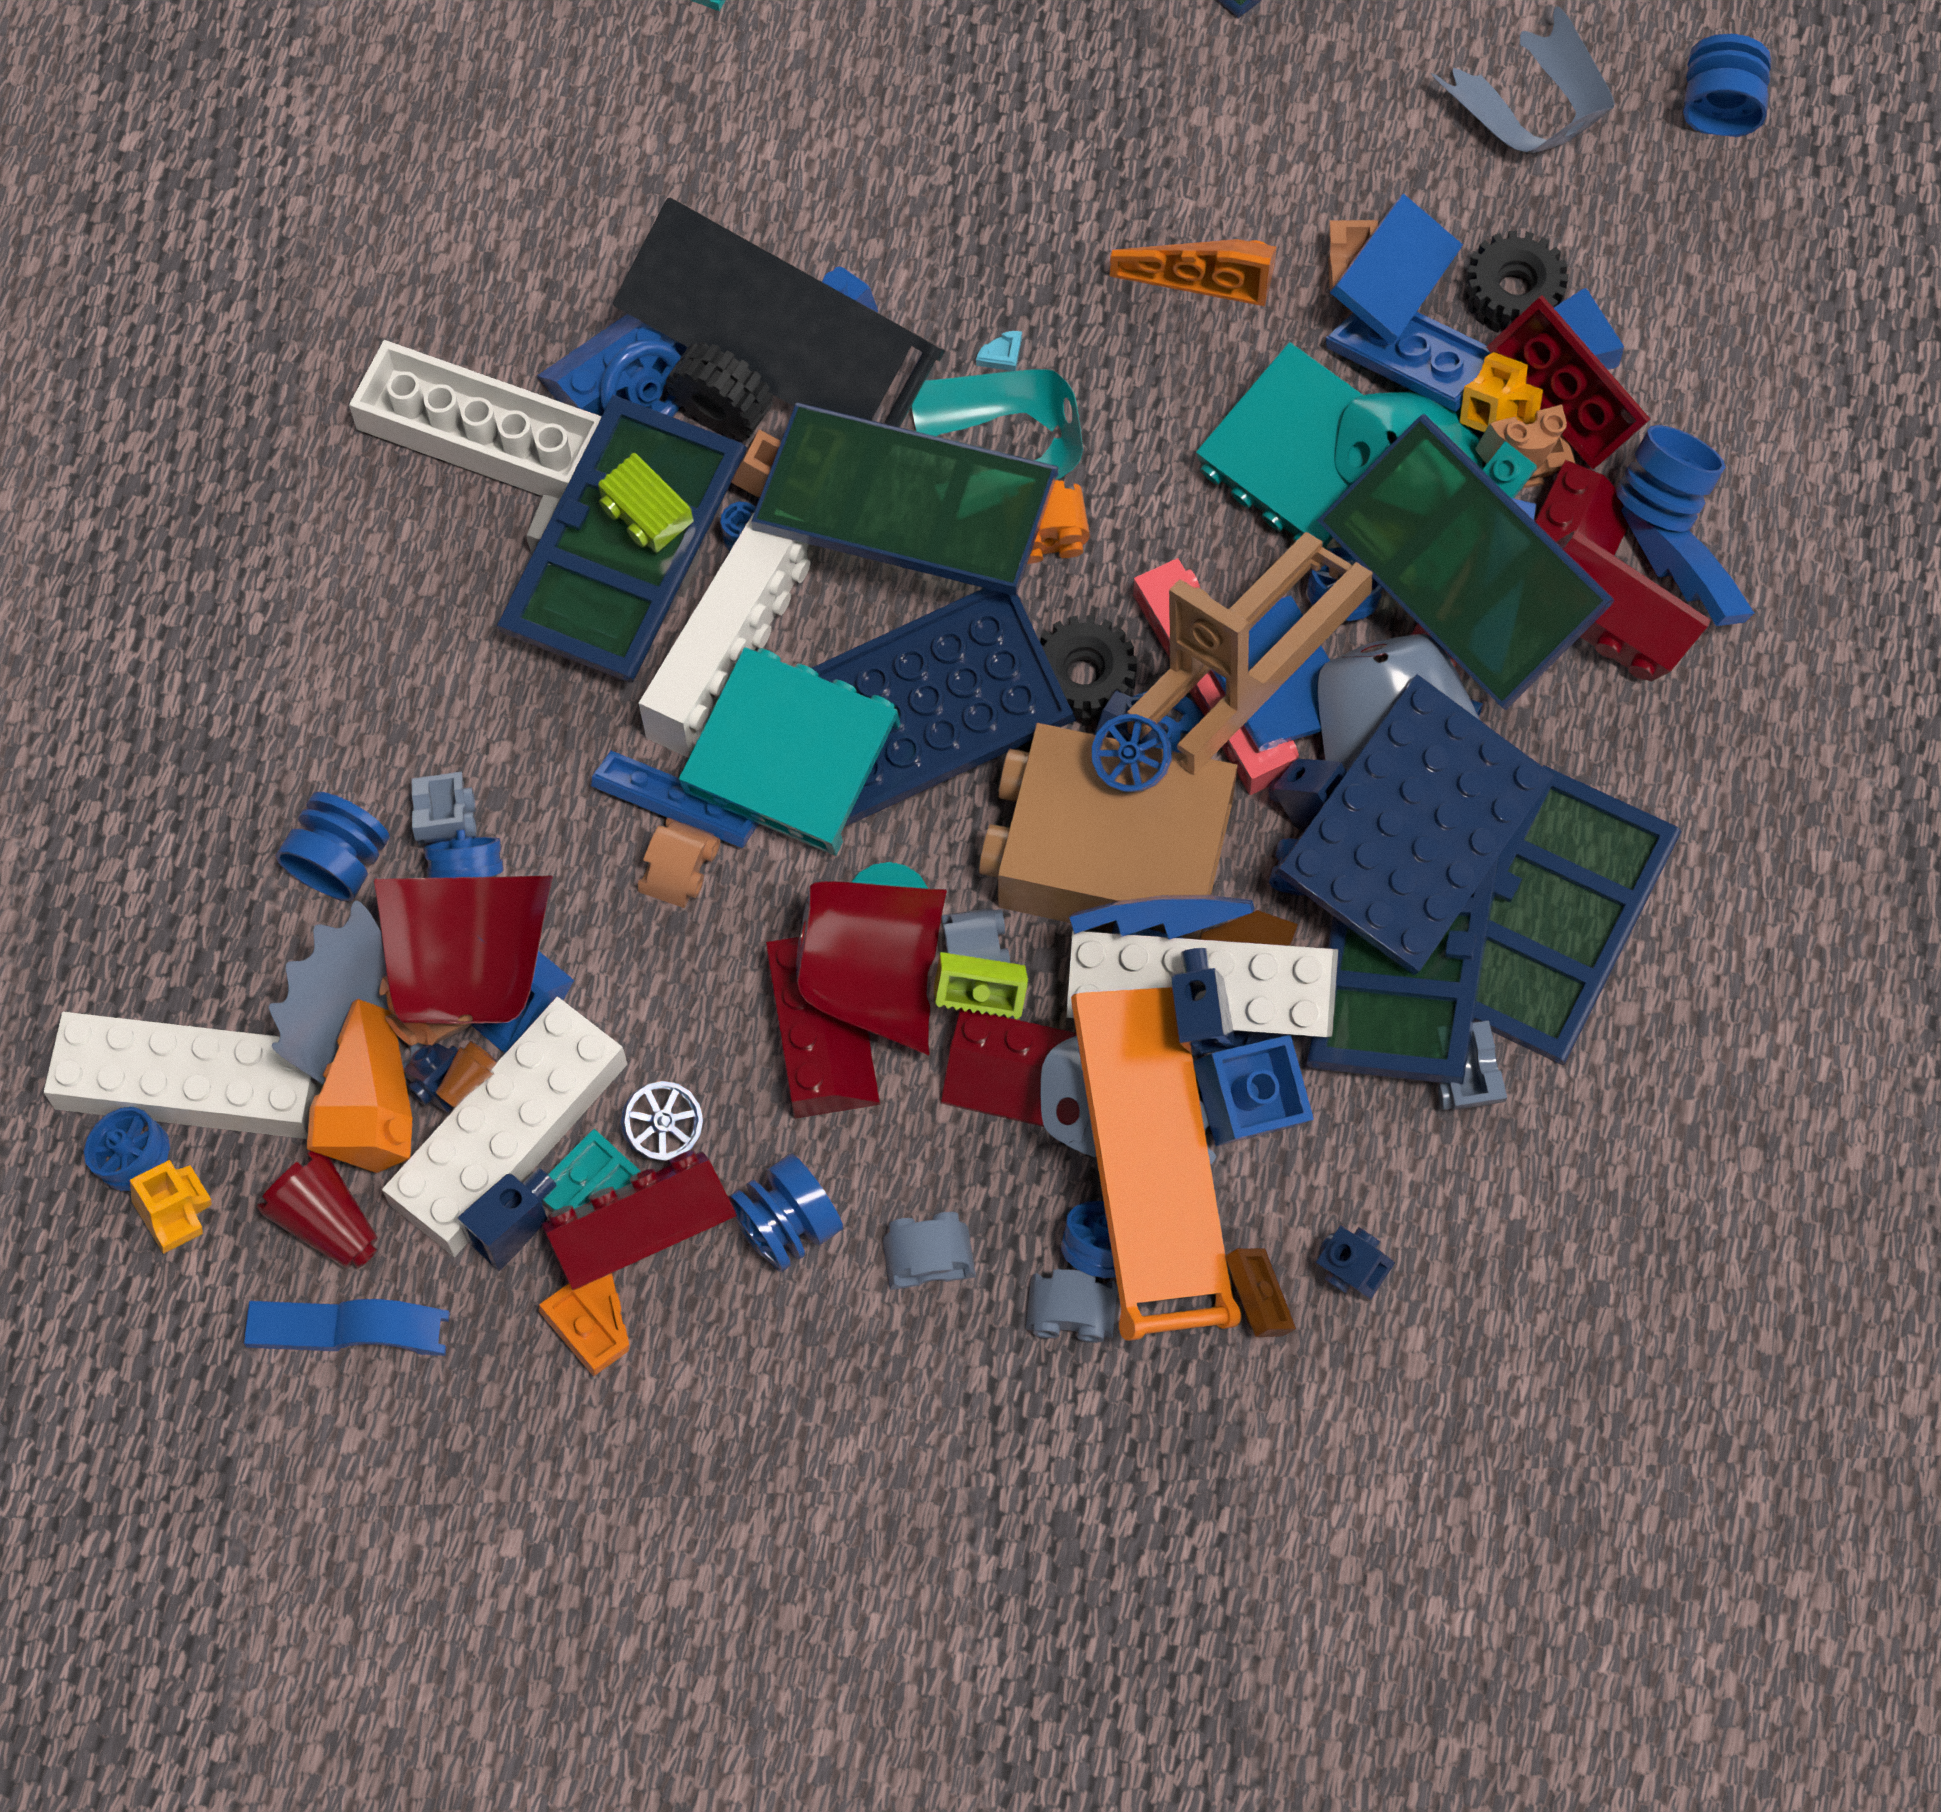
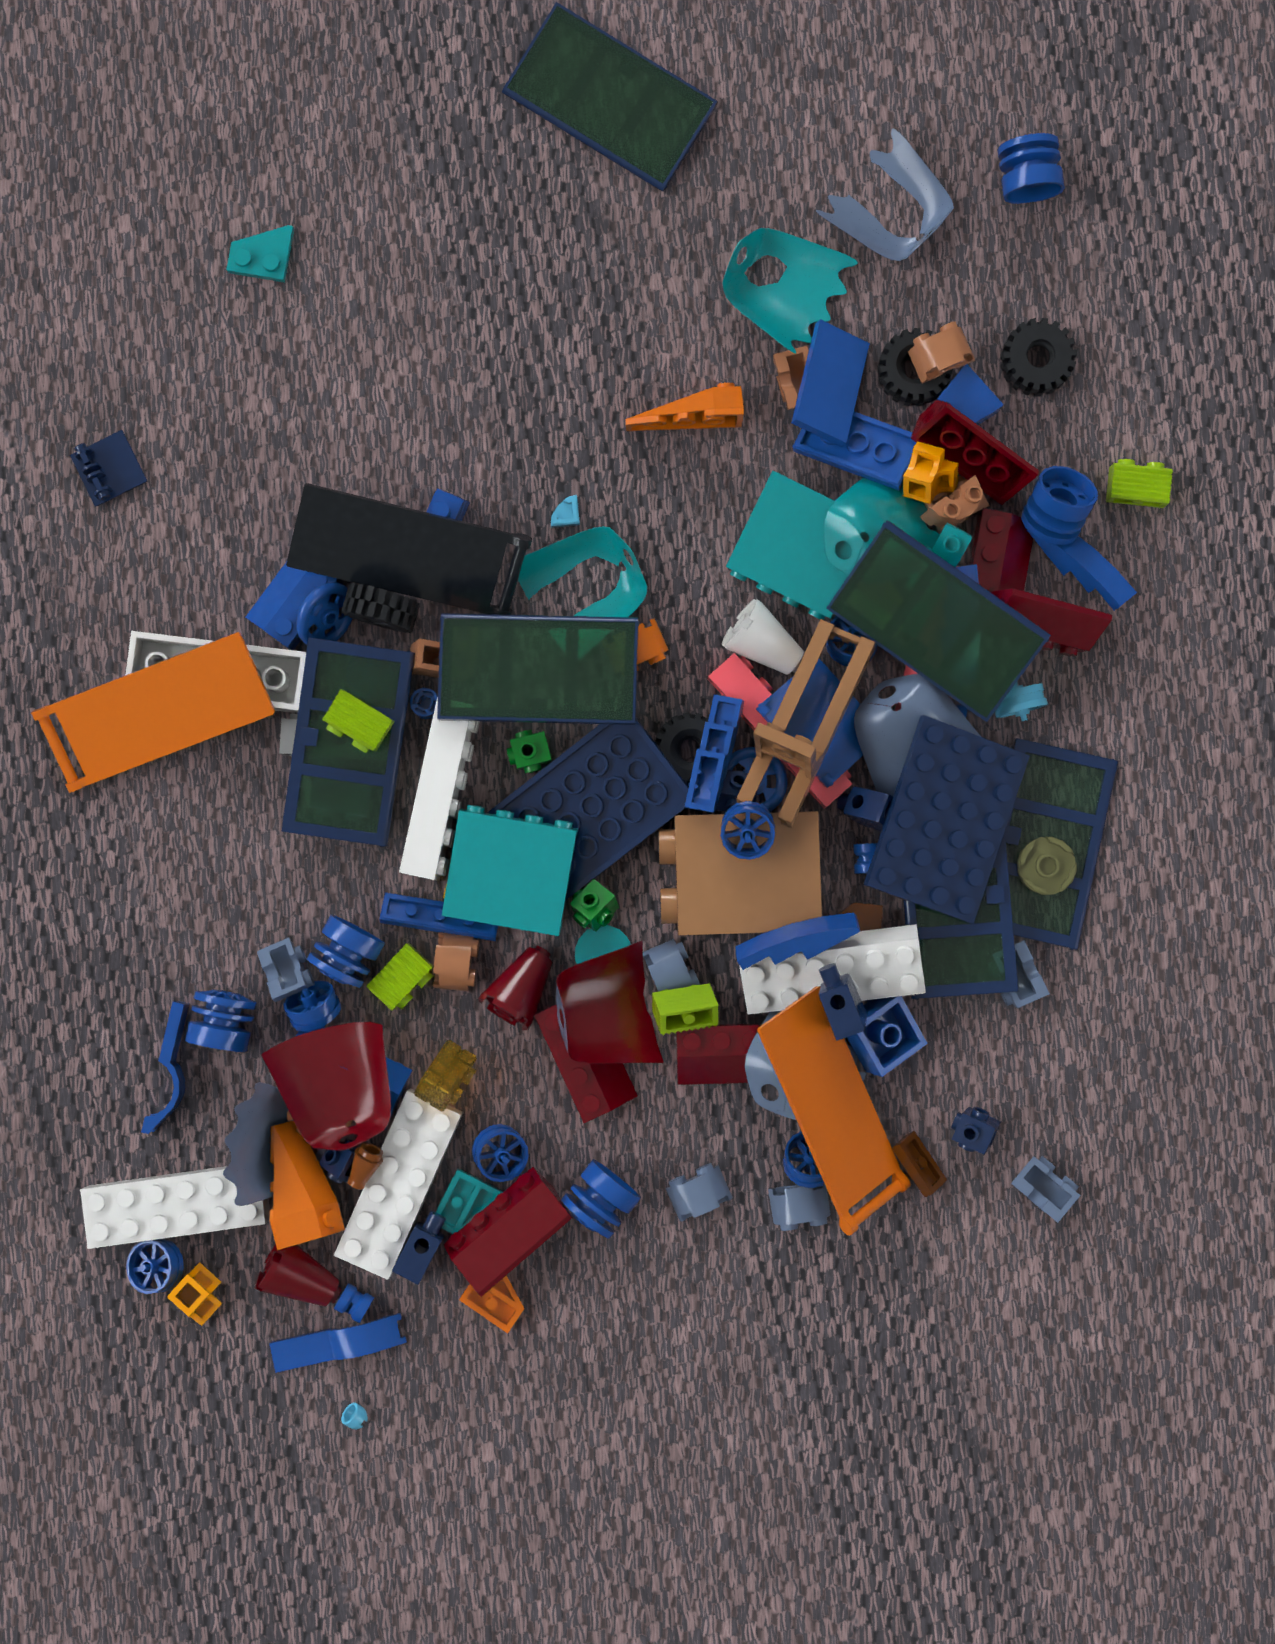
camera: 15 degrees left, 20 degrees up
(246, 878) = (168, 1058): none -> blue piece
(335, 1434) = (354, 1416): none -> medium azure hinge
(383, 442) = (157, 710): none -> orange flag
(388, 1273) = (354, 1303): none -> blue wheel
(420, 162) = (108, 467): none -> dark blue hinge
(541, 792) = (345, 951): none -> blue wheel
(597, 860) = (401, 977): none -> lime brick
(618, 993) = (445, 1076): none -> clear yellow brick
(753, 911) = (519, 988): none -> dark red cone
(862, 614) = (540, 755): none -> green brick
(893, 830) = (593, 906): none -> green brick
(1113, 665) = (714, 754): none -> blue slope
(1219, 550) = (763, 639): none -> white cone
(1393, 164) = (799, 296): none -> teal piece
(1435, 1370) = (1046, 1189): none -> sand blue cylinder
(1545, 935) = (1046, 865): none -> olive tile
(1552, 261) = (940, 352): none -> nougat cylinder
(1557, 711) = (1021, 701): none -> medium azure wheel
(1677, 331) = (1022, 372): none -> black tyre
(1789, 490) = (1139, 484): none -> lime brick

